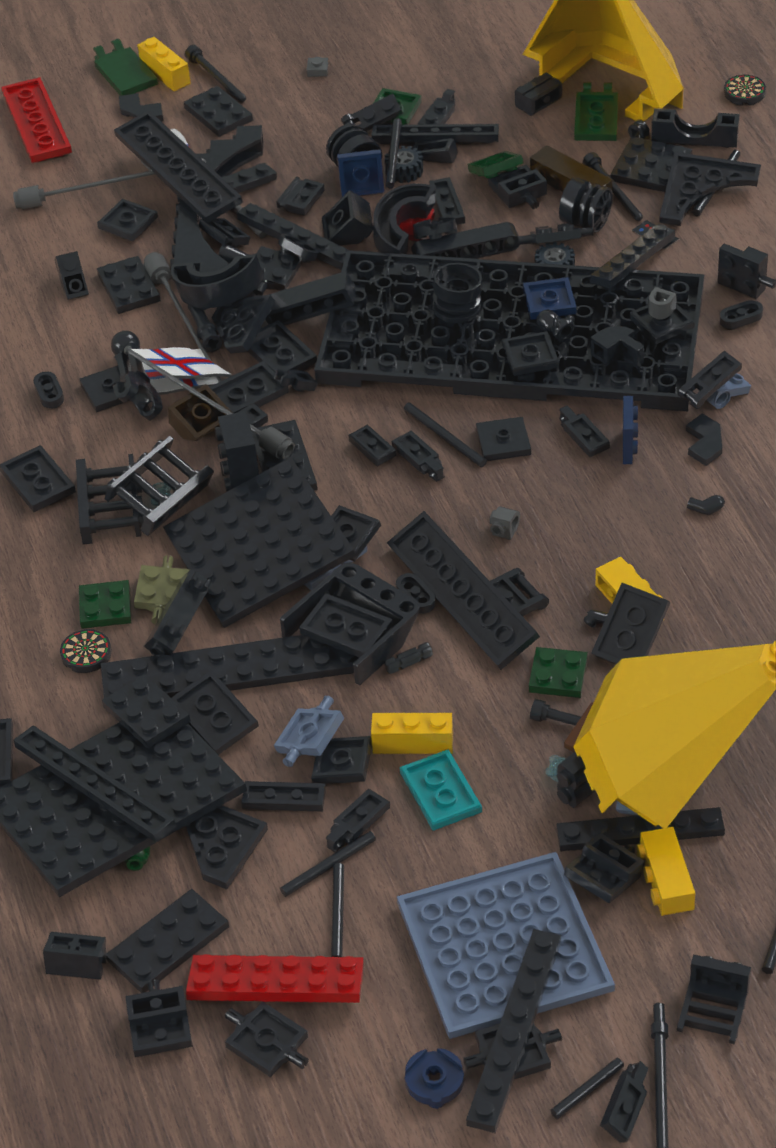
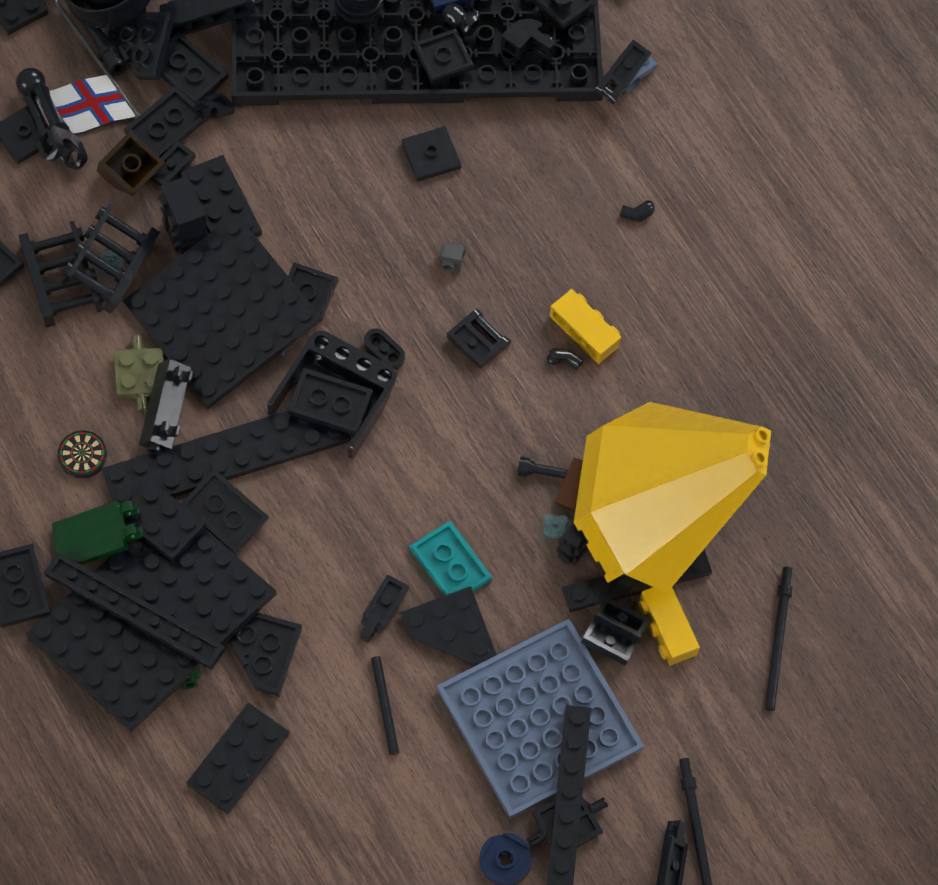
camera: 20 degrees left, 20 degrees up
(75, 955) = (159, 788): black hinge -> none
(79, 711) = (96, 532): none -> dark green tile
(104, 604) = (87, 397): dark green plate -> none
(158, 1020) = (252, 843): black plate -> none
(188, 364) = (99, 104): flag -> none
(266, 1039) = (351, 845): black plate -> none
(275, 978) = (346, 785): red plate -> none
(284, 796) = (310, 592): black plate -> none
(309, 731) = (319, 521): sand blue plate -> none
(327, 864) = (368, 653): black bar -> none
(343, 761) = (355, 546): black plate -> none
(372, 445) = (306, 177): black plate -> none
(408, 658) = (392, 423): black axle -> none
(411, 733) = (414, 509): yellow brick -> none
(419, 455) = (354, 184): black hinge -> none
(426, 844) = (451, 626): none -> black plate
(445, 434) = (373, 154): black axle -> none
(463, 590) = (429, 341): black plate -> none
(558, 672) = (533, 420): dark green plate -> none
(583, 432) = (507, 138): black hinge -> none
(587, 1088) = (636, 848): black bar -> none
(630, 429) = (553, 139): dark blue plate -> none
(630, 625) = (595, 369): black plate -> none
(709, 436) = (627, 125): black tile -> none
(718, 983) = (735, 732): black plate -> none

